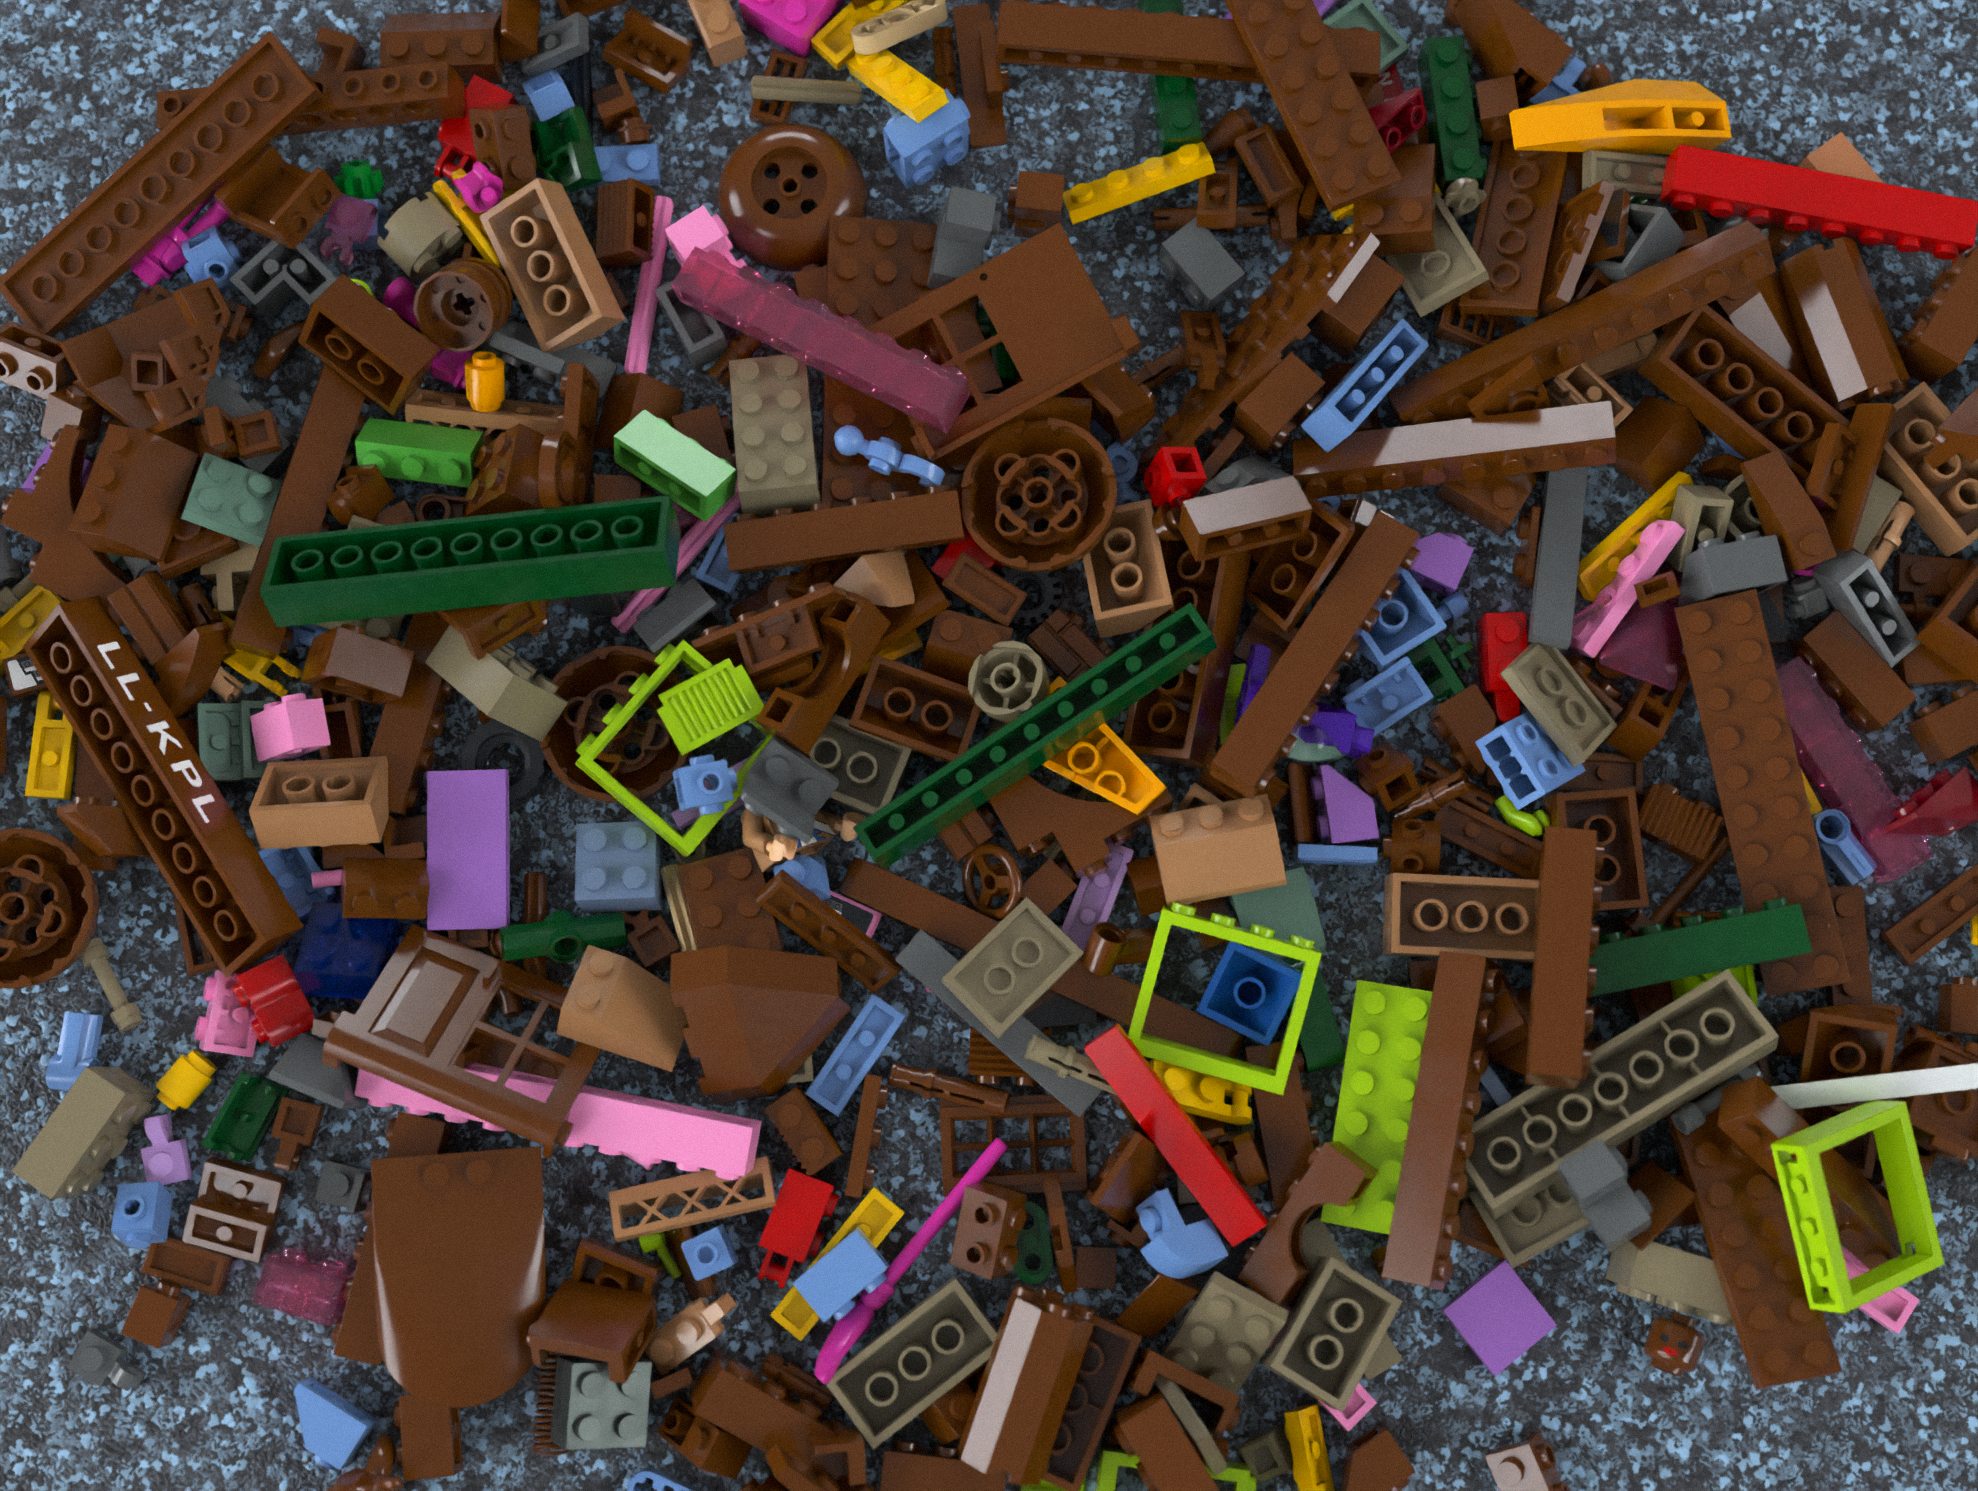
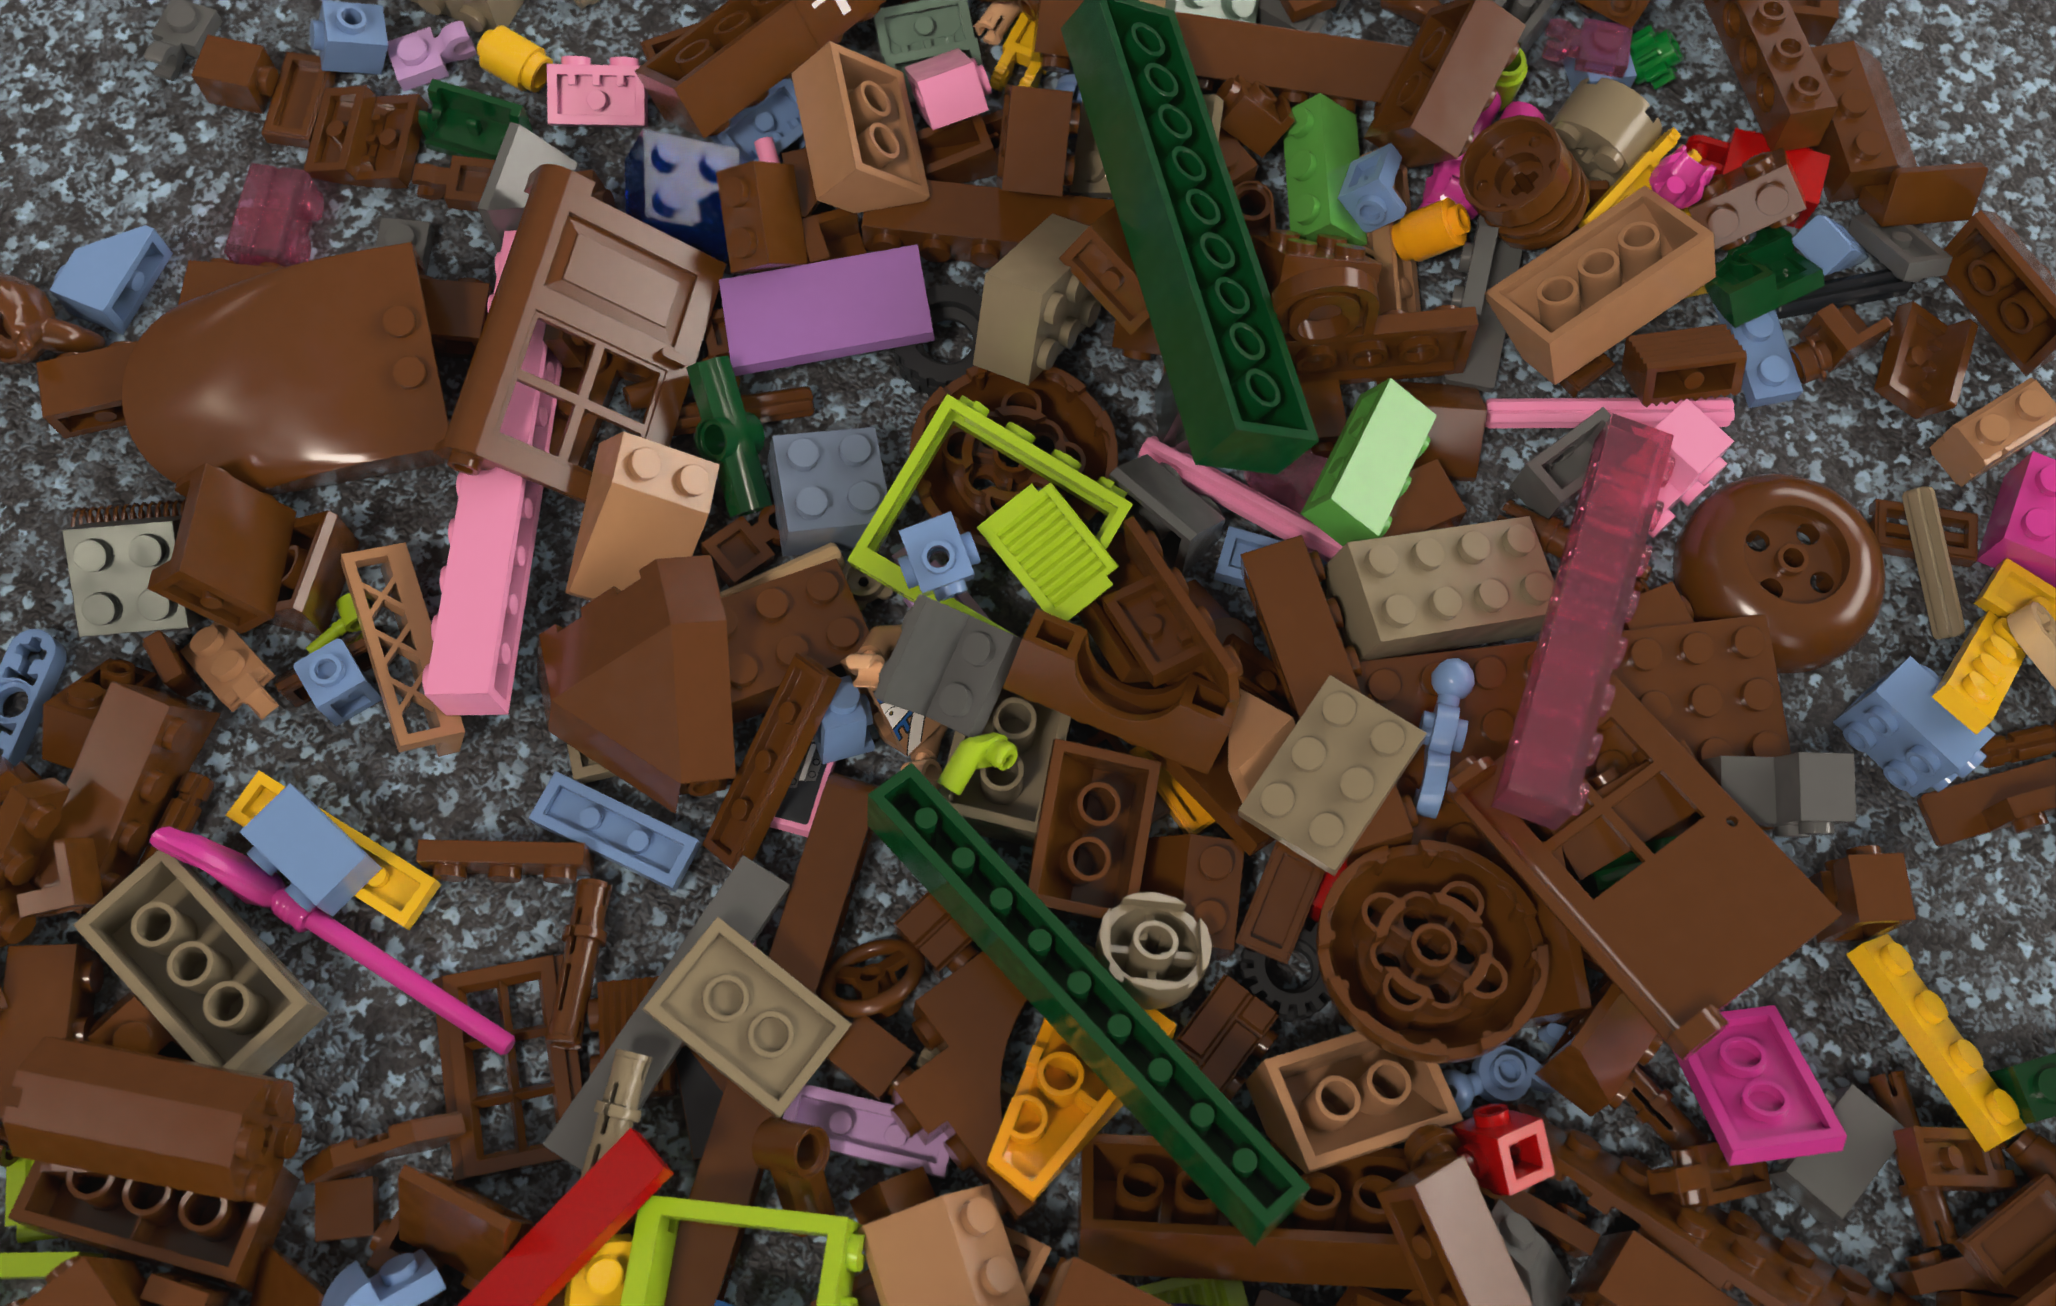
camera: 80 degrees right, 10 degrees down
(275, 1001) = (607, 131): red brick -> none
(442, 419) = (1369, 190): none -> medium blue bracket
(796, 1222) = (385, 786): red brick -> none
(804, 1131) = (503, 777): reddish brown brick -> none
(850, 782) = (975, 754): none -> lime arm
(908, 536) = (1332, 775): none -> dark tan plate
(988, 1229) = (383, 1042): reddish brown brick -> none
(1034, 1241) = (377, 1104): dark green plate -> none
(1159, 301) = (1761, 1091): none -> dark pink plate

